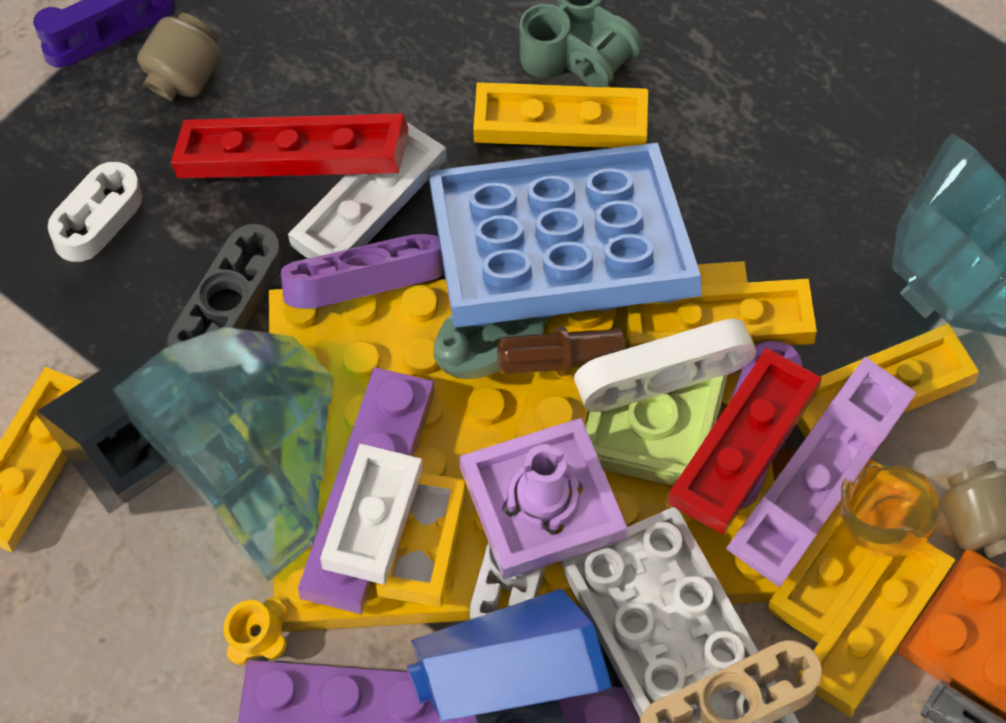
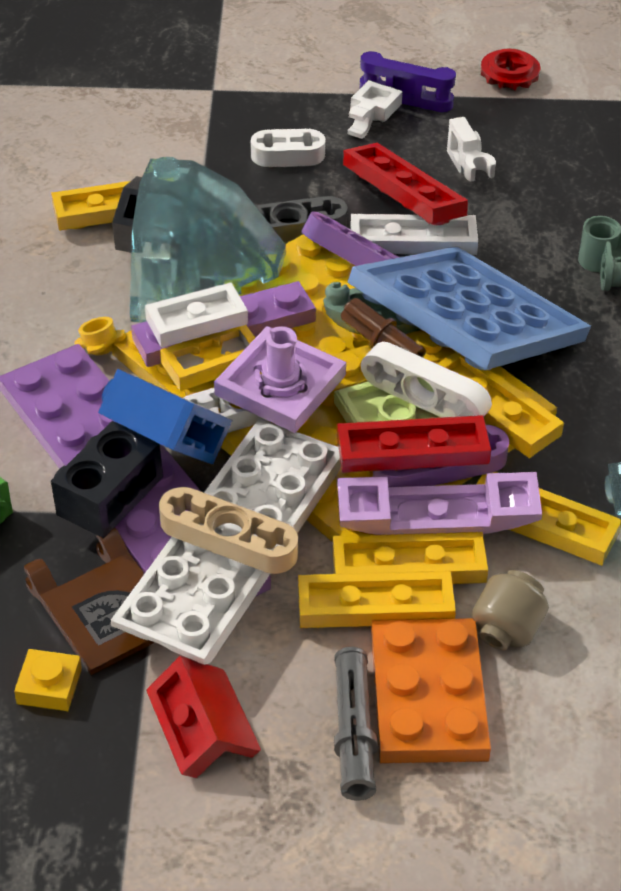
camera: 50 degrees right, 15 degrees down
(110, 72) = (372, 103): none -> white plate
(179, 56) = (412, 119): dark tan head -> none
(277, 46) = (465, 150): none -> white plate
(560, 115) = (560, 278): yellow plate -> none
(890, 510) = (443, 545): clear yellow hair -> none

